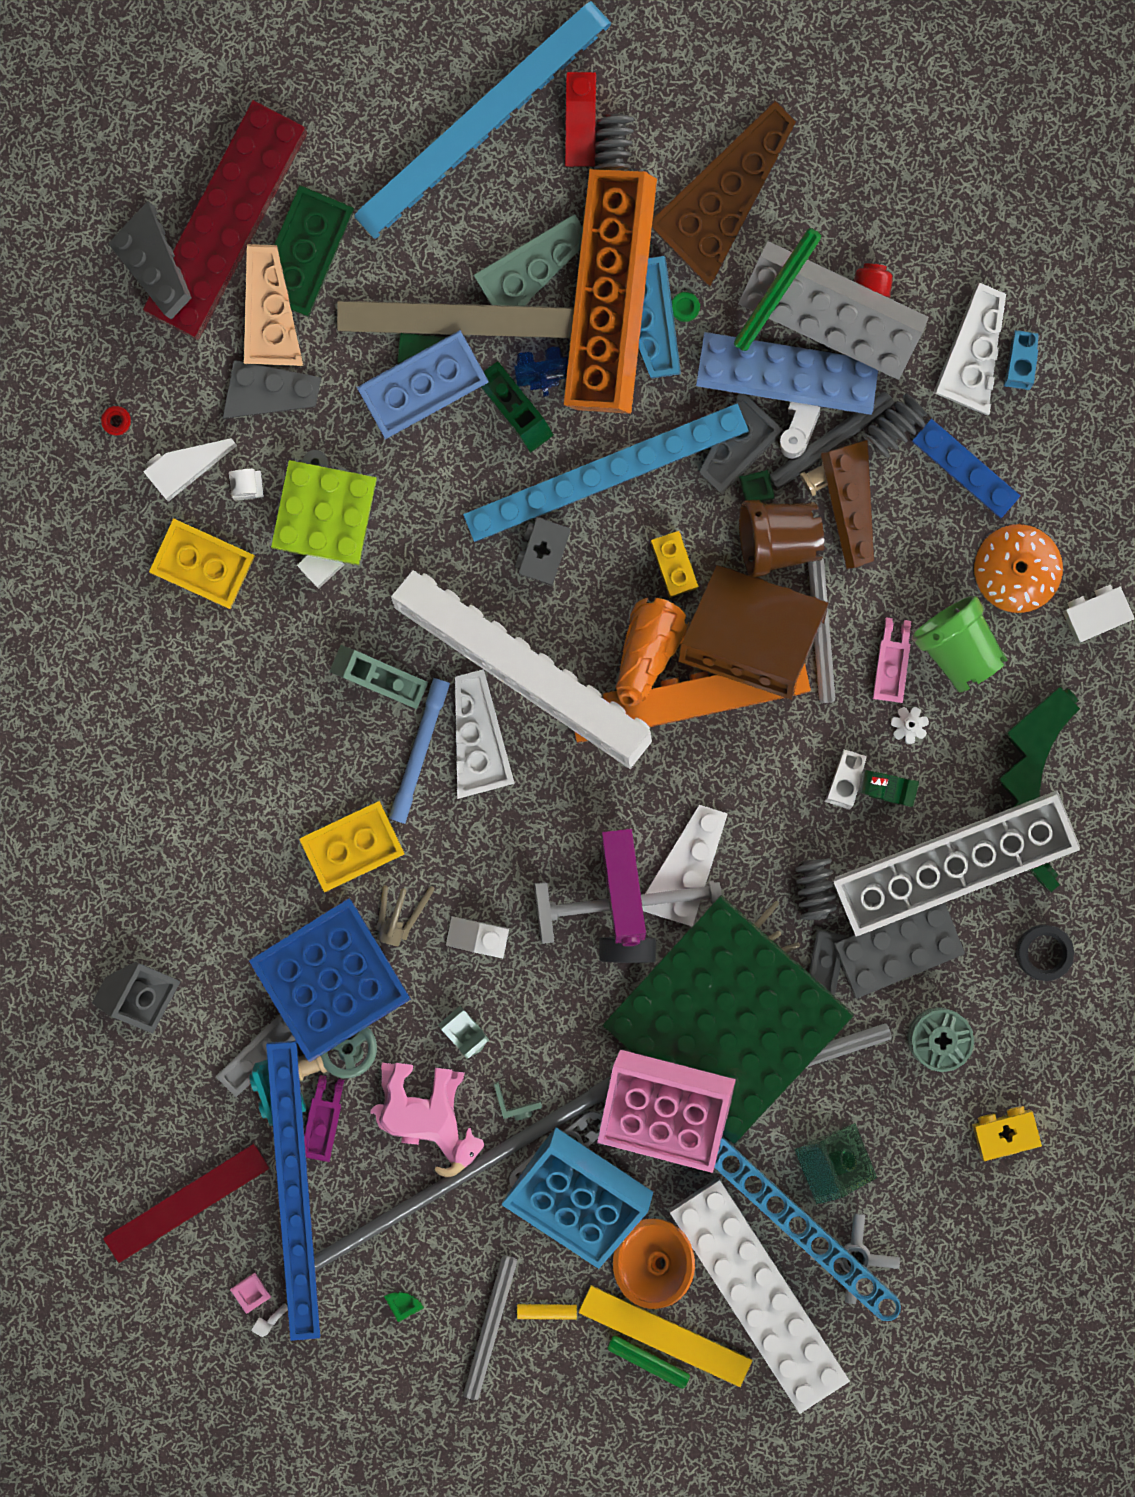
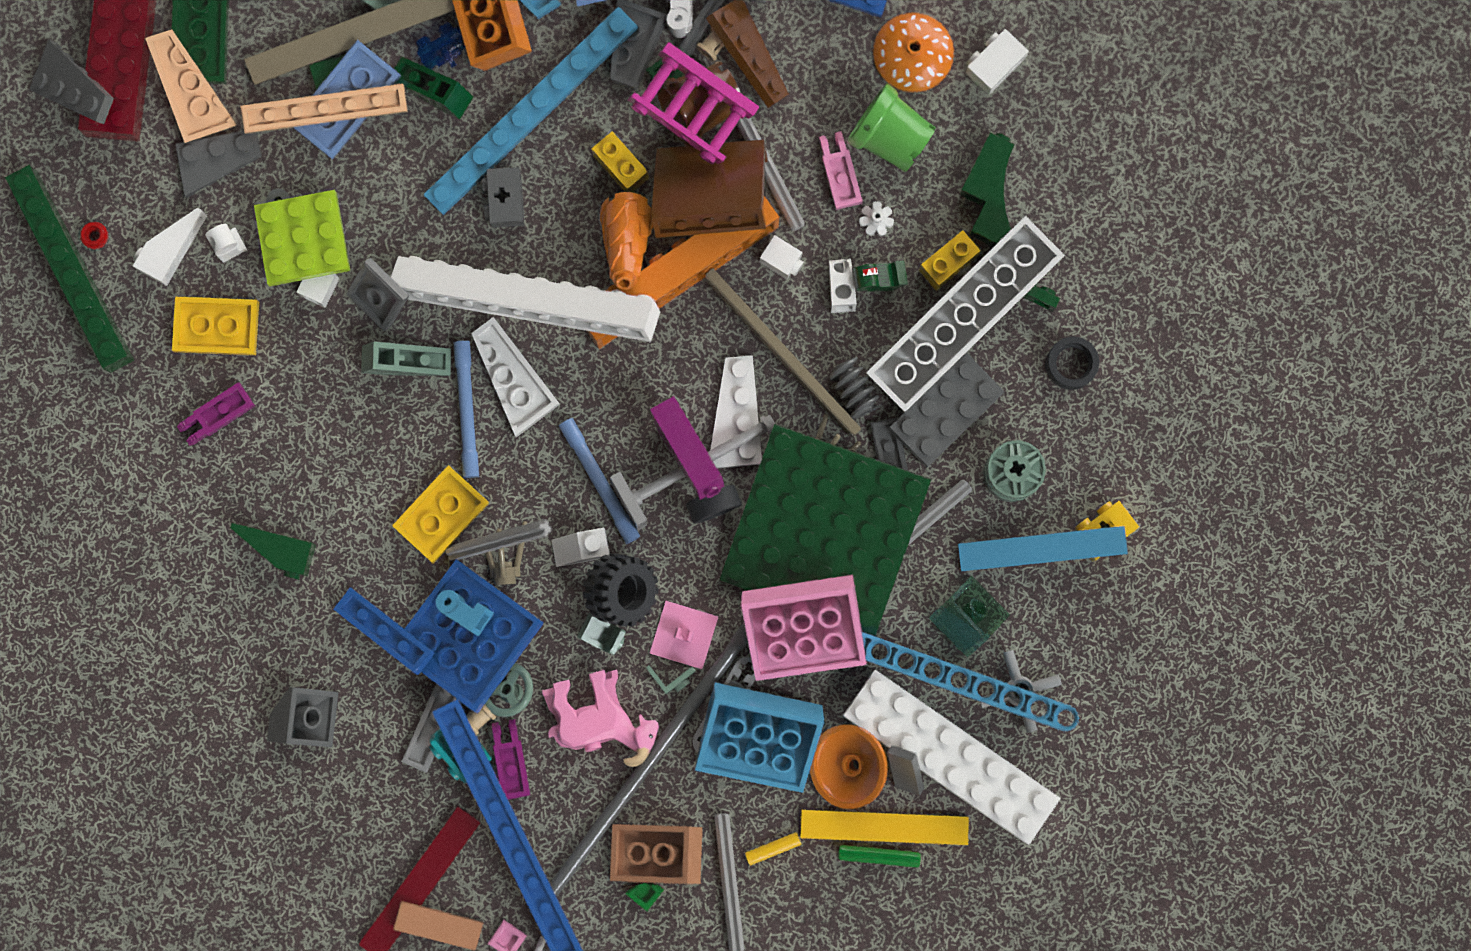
camera: 20 degrees left, 5 degrees down
(78, 446) = (69, 269): none -> dark green brick
(171, 653) = (218, 413): none -> magenta hinge
(179, 819) = (283, 552): none -> dark green slope
(188, 1252) = (438, 925): none -> nougat tile
(249, 941) = (384, 631): none -> blue plate
(330, 951) = (455, 607): none -> dark azure leg
(376, 600) = (377, 294): none -> dark grey tile
(398, 387) = (324, 108): none -> light nougat tile
(399, 901) = (498, 540): none -> light grey axle
(430, 1271) = (656, 854): none -> nougat slope
(512, 1010) = (637, 593): none -> black tyre
(529, 925) = (577, 442): none -> medium blue piece
(545, 1064) = (684, 635): none -> bright pink piece
(708, 1291) = (905, 770): none -> dark grey tile
(758, 824) = (782, 353): none -> dark tan tile
(798, 542) = (717, 92): none -> dark pink fence
(798, 727) = (782, 258): none -> white brick
(936, 1127) = (1043, 548): none -> dark azure tile
(965, 799) = (949, 260): none -> yellow brick

